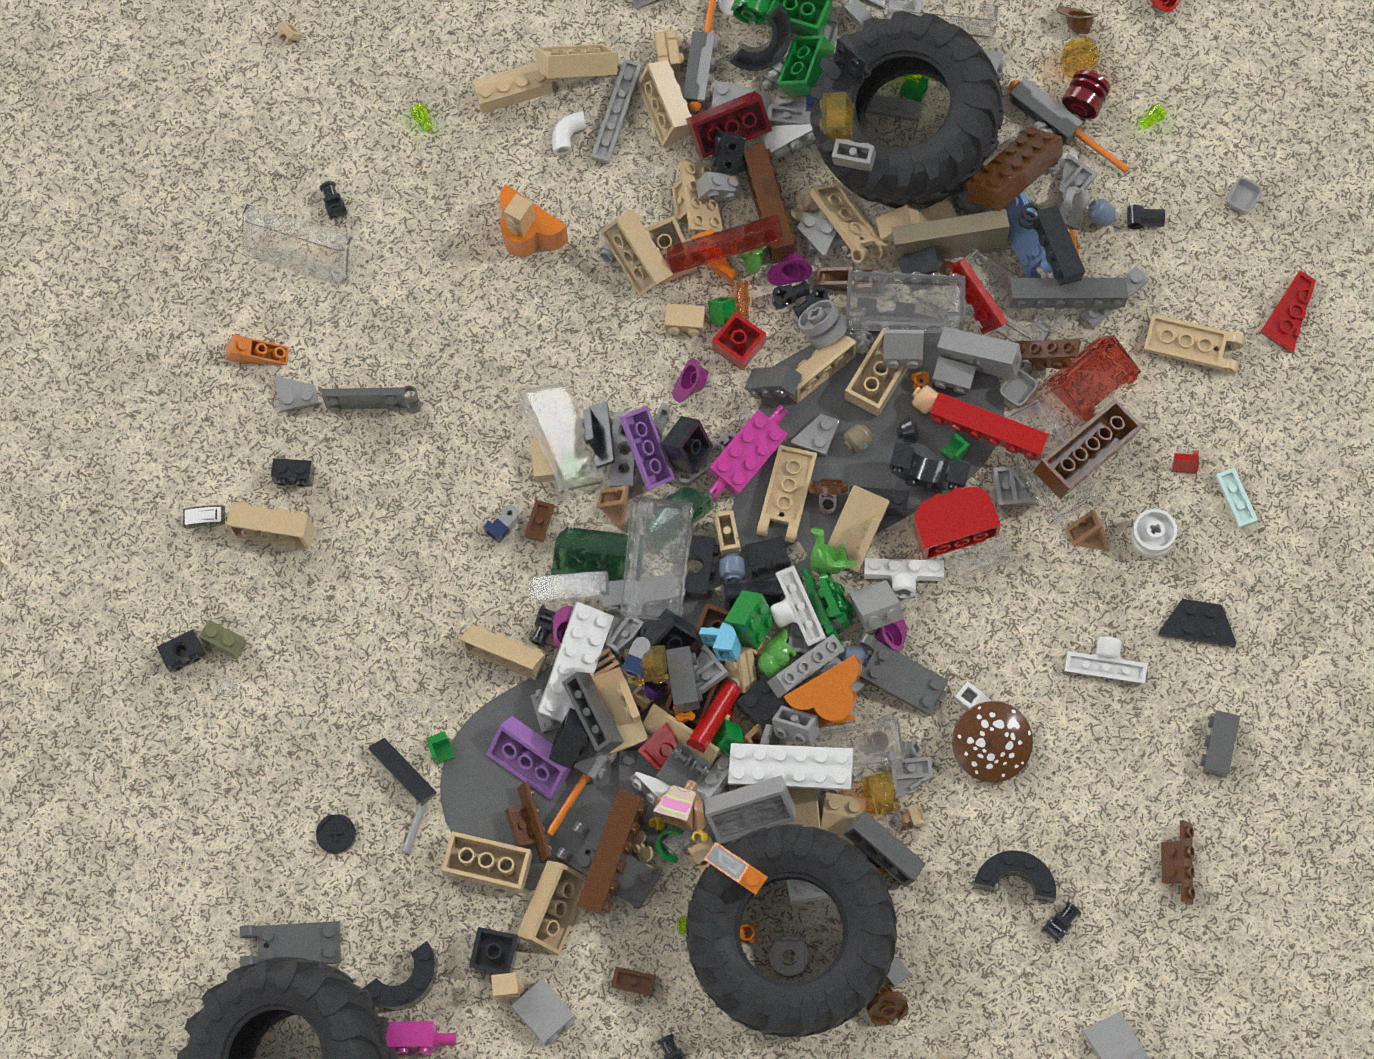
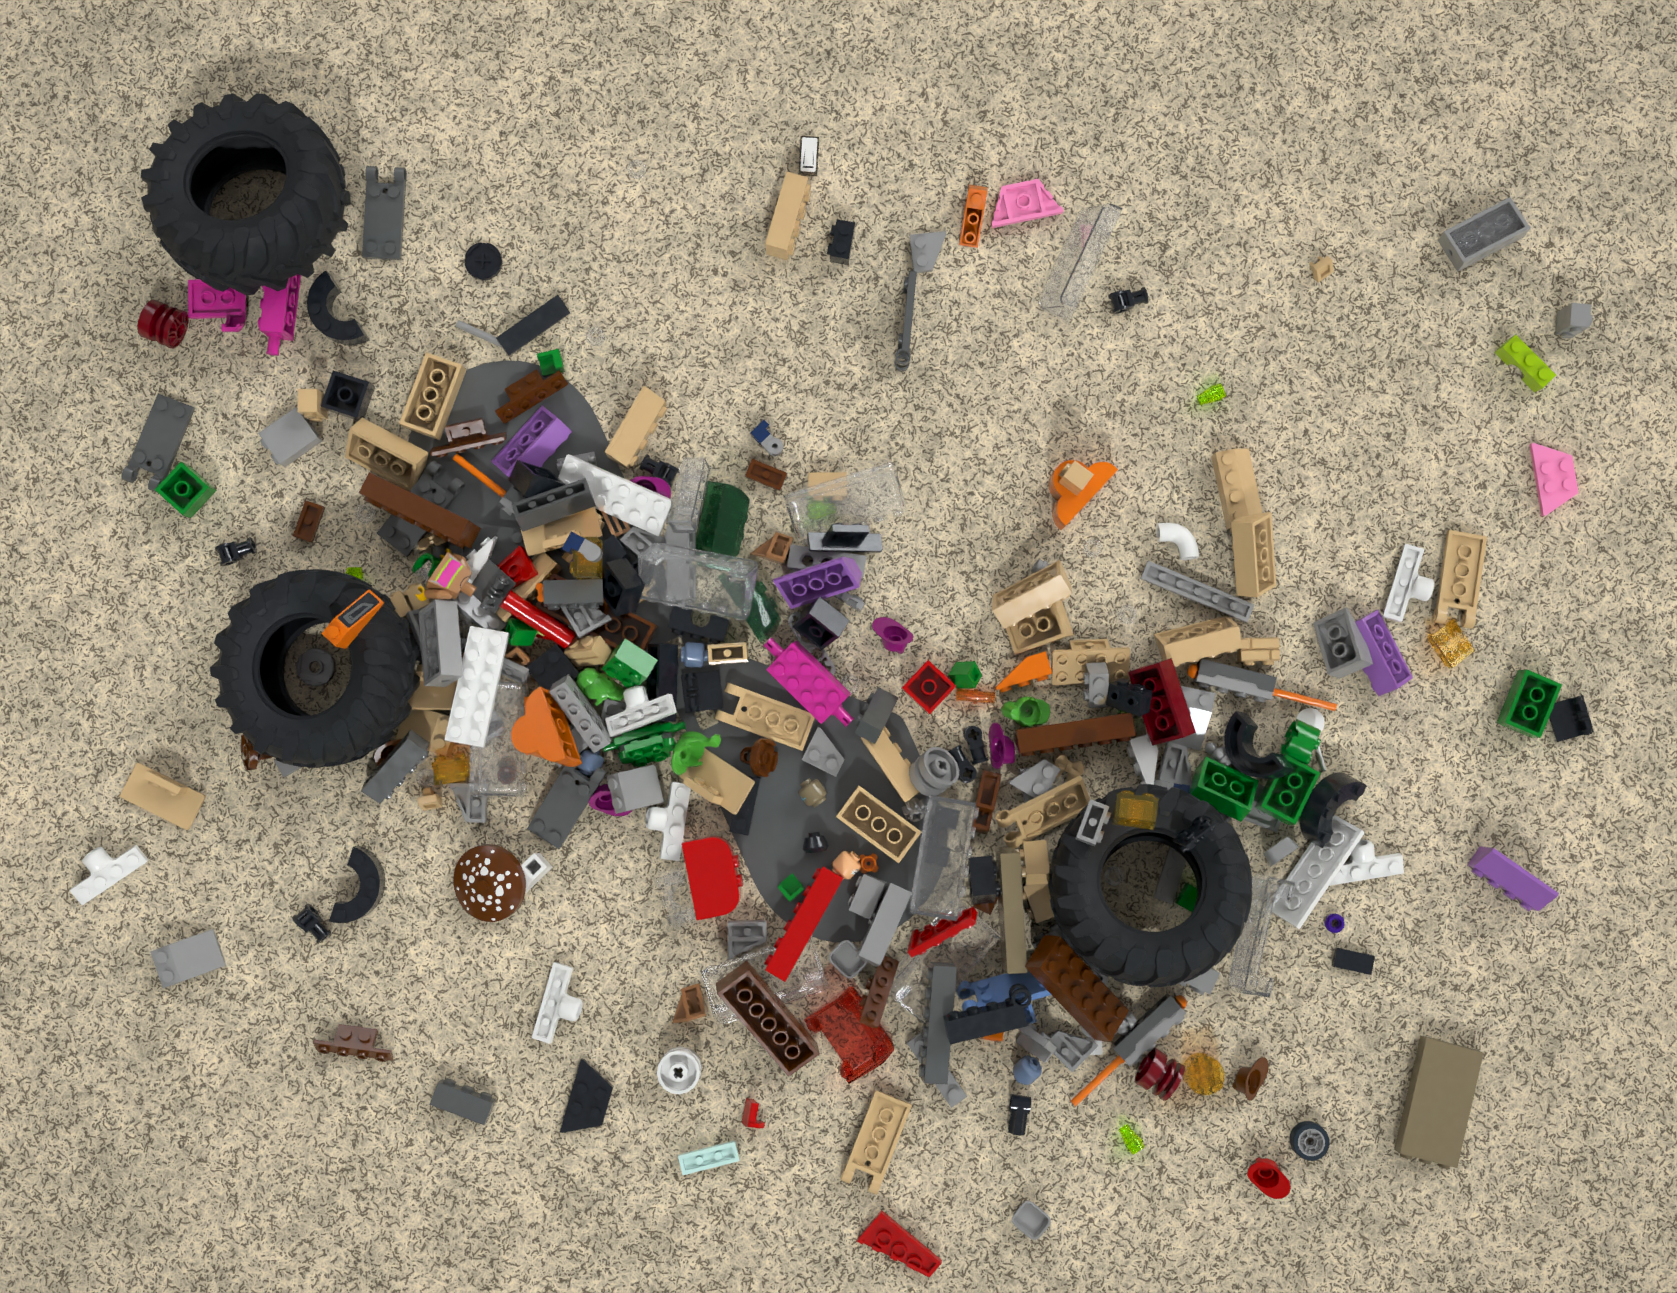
camera: 90 degrees right, 15 degrees up
(170, 649) = (674, 116): black brick -> none
(222, 639) = (681, 166): olive brick -> none
(241, 307) = (1024, 203): none -> bright pink wing
(473, 768) = (529, 392): none -> reddish brown bracket
(684, 318) = (960, 636): tan piece -> none
(723, 640) = (605, 639): medium azure brick -> none
(725, 244) = (1026, 683): clear red brick -> none
(796, 726) = (515, 699): light grey brick -> none
(903, 348) = (889, 848): light grey slope -> none
(912, 748) = (494, 805): light grey bush -> none
(925, 472) = (767, 859): black brick -> none

